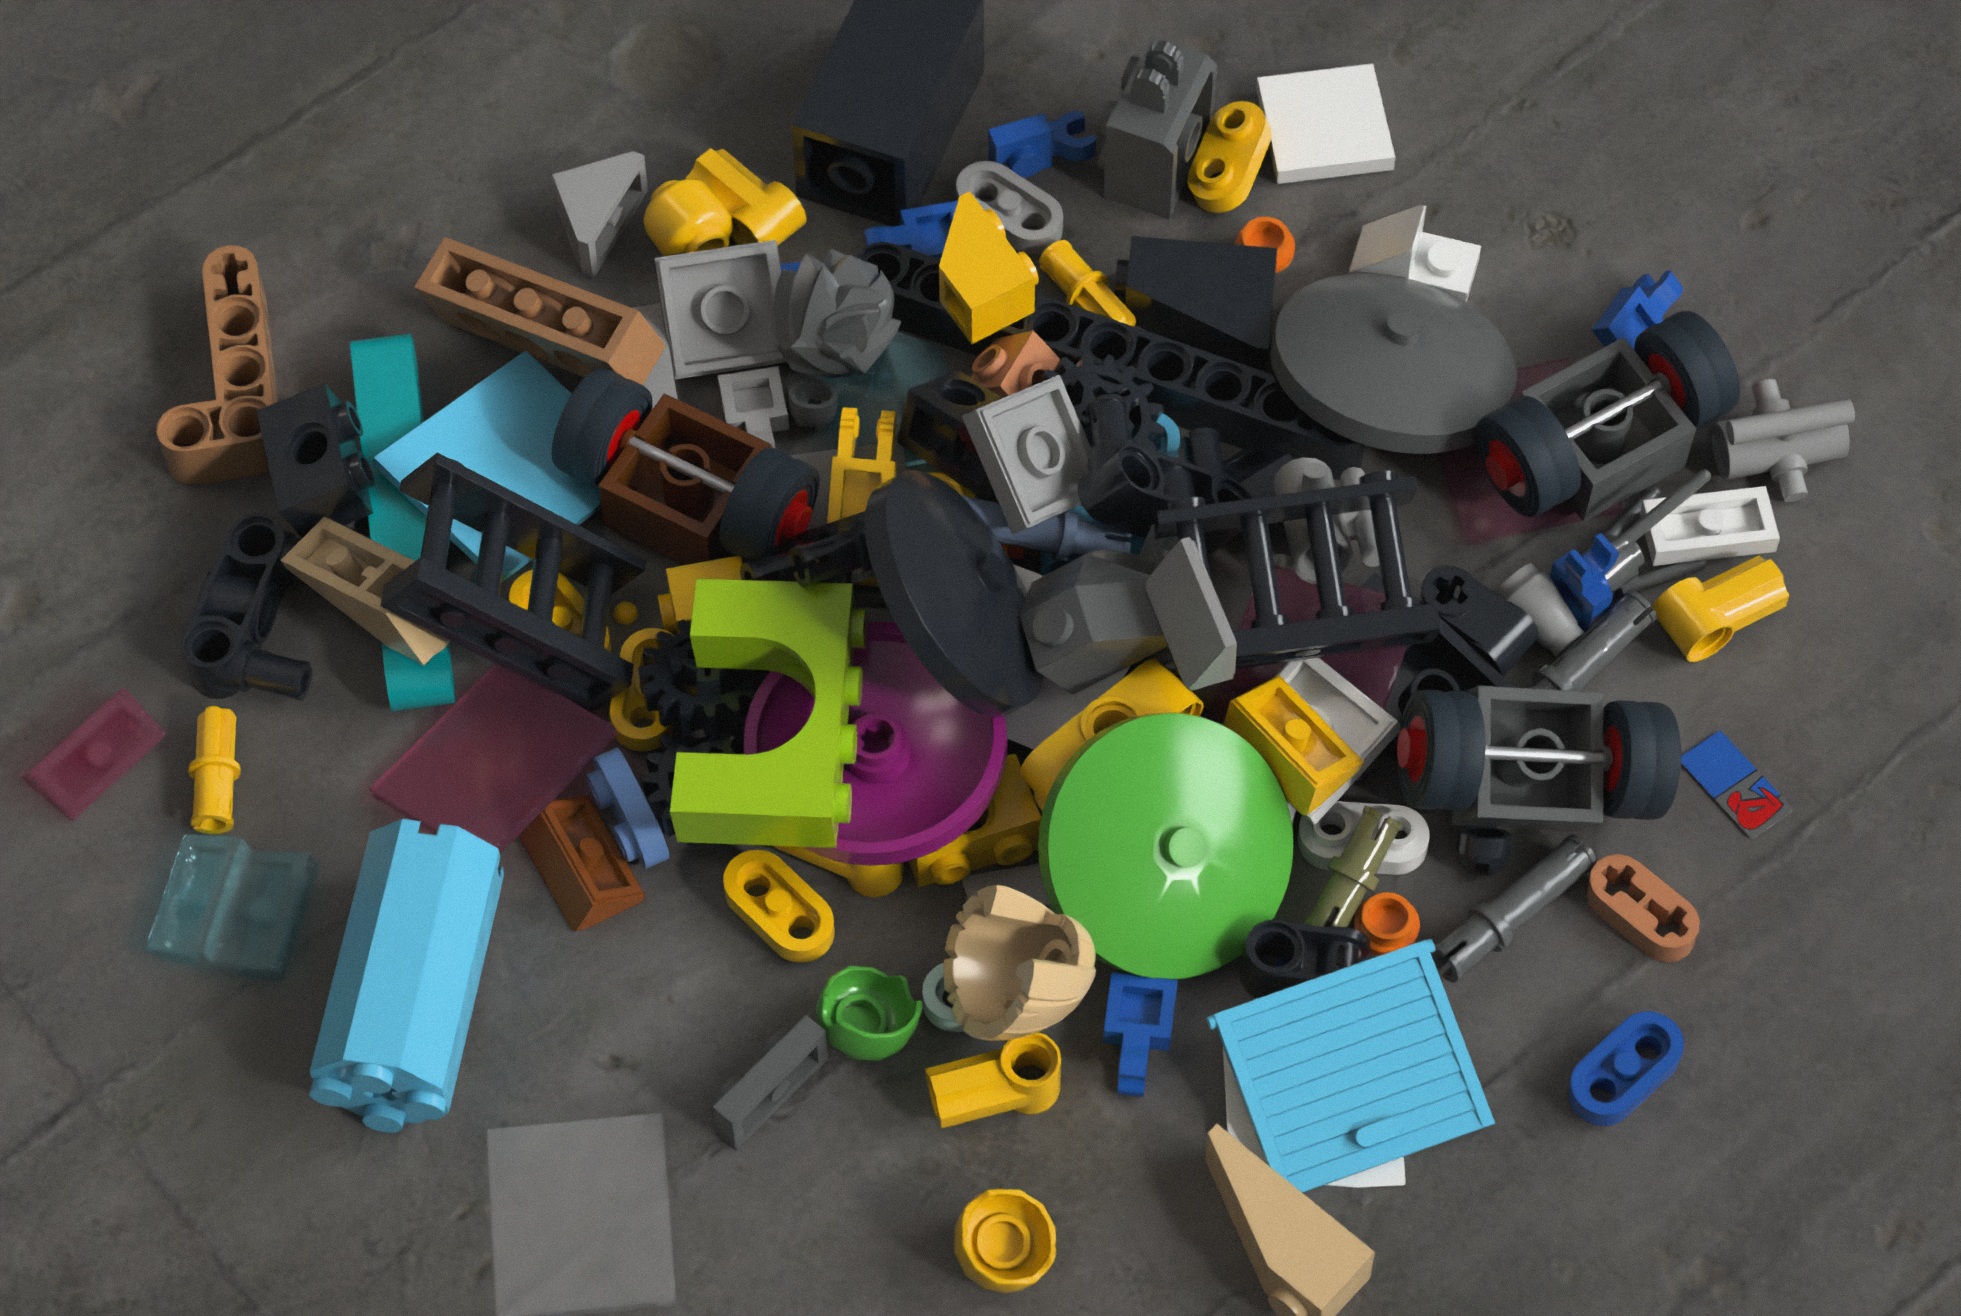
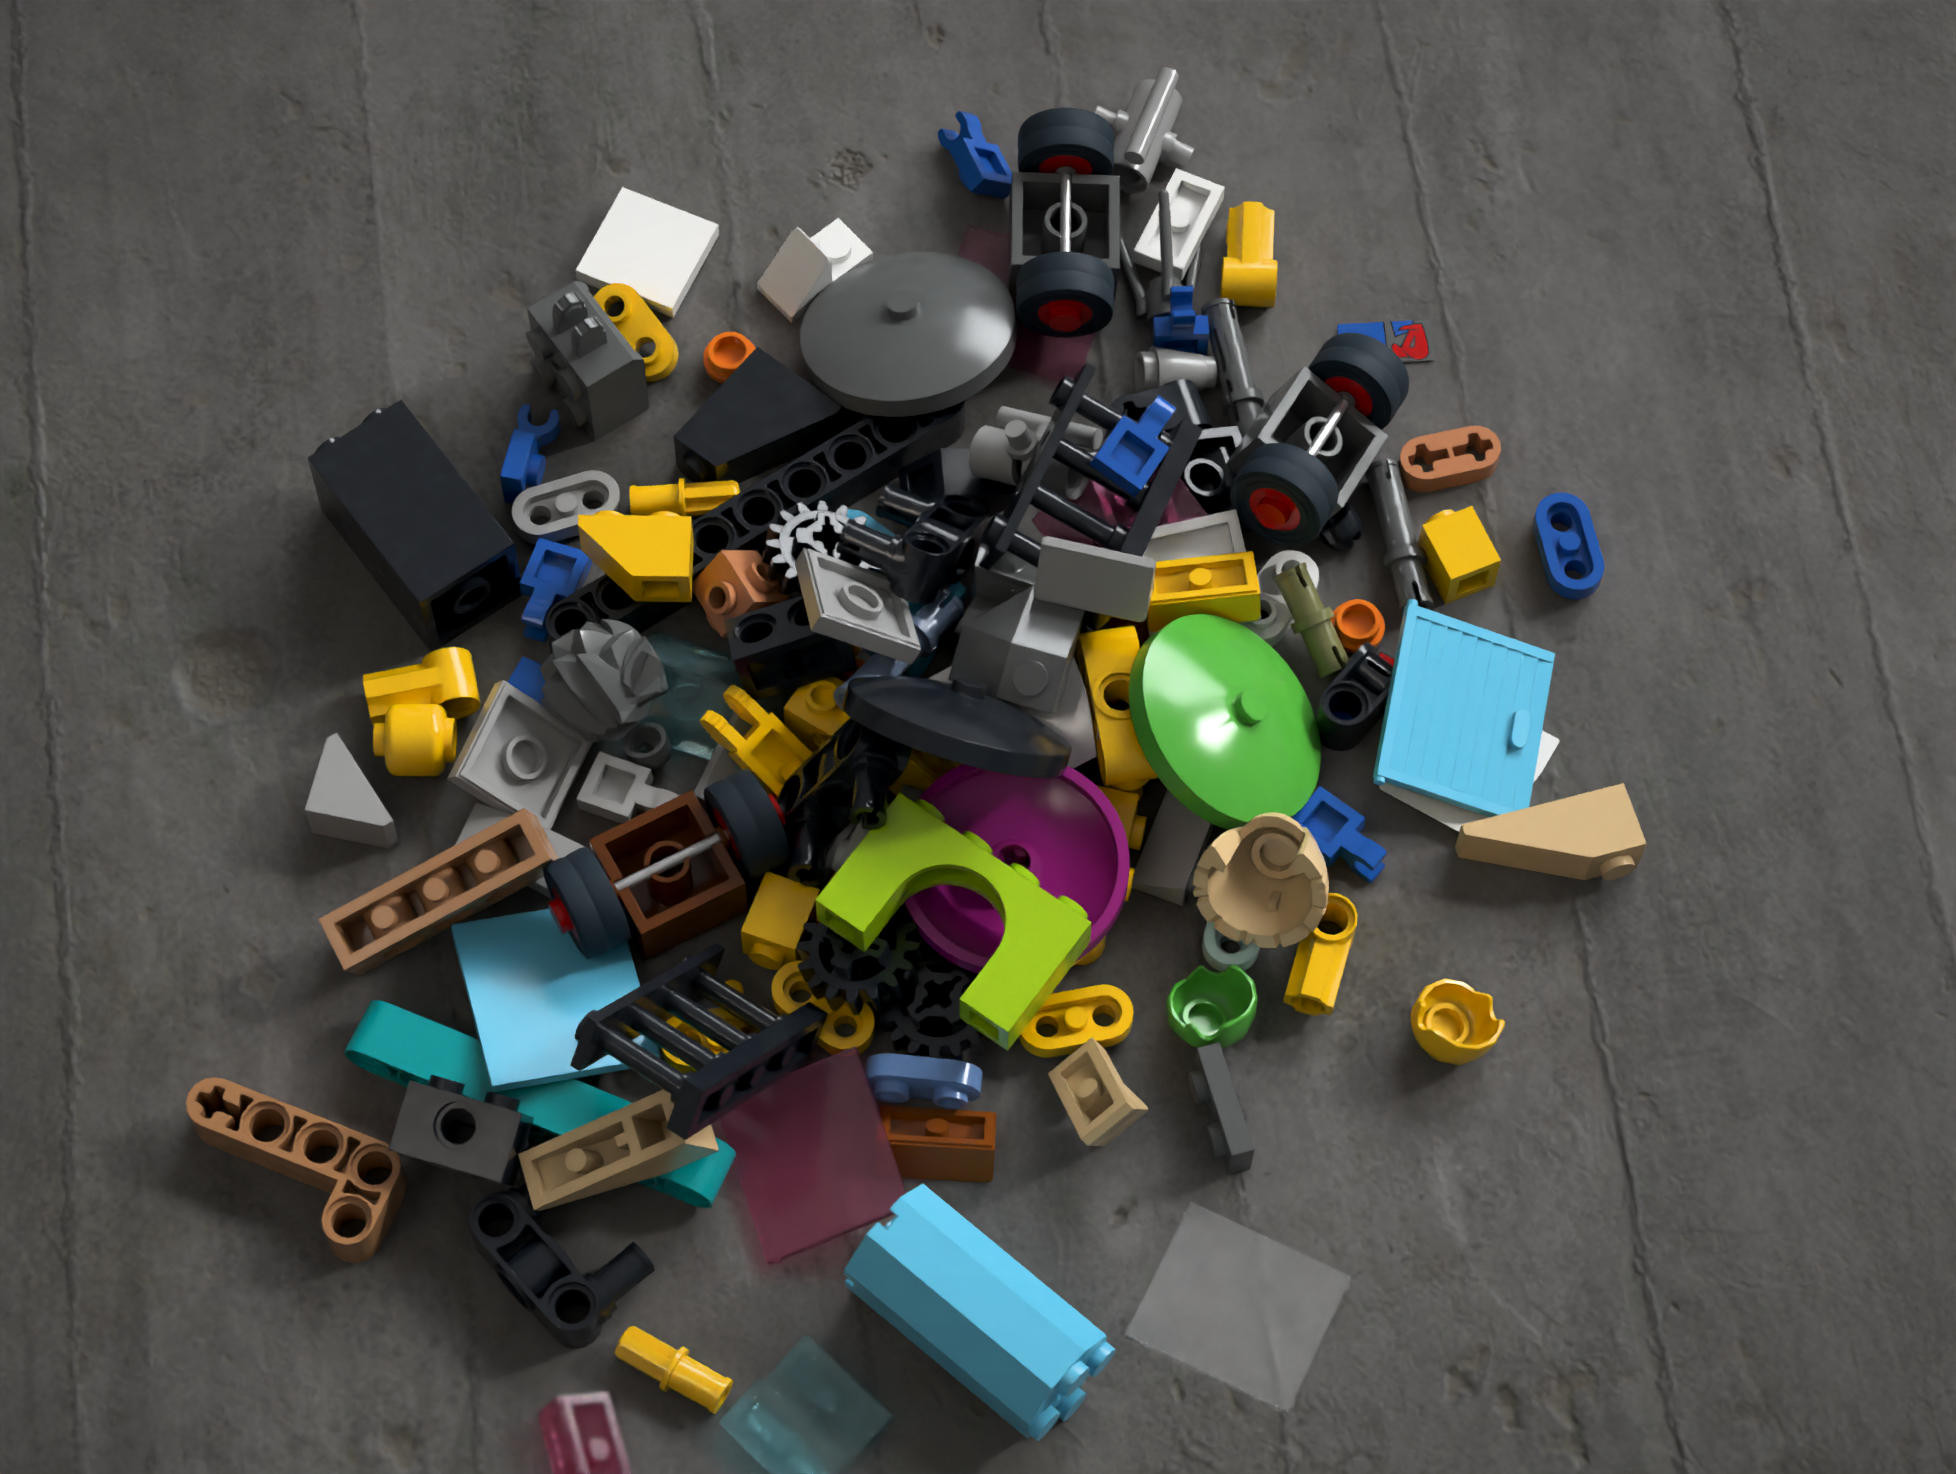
camera: 60 degrees left, 5 degrees up
(695, 963) = (1095, 1095): none -> tan slope
(1358, 574) = (1133, 449): none -> blue plate
(1533, 968) = (1458, 554): none -> yellow brick

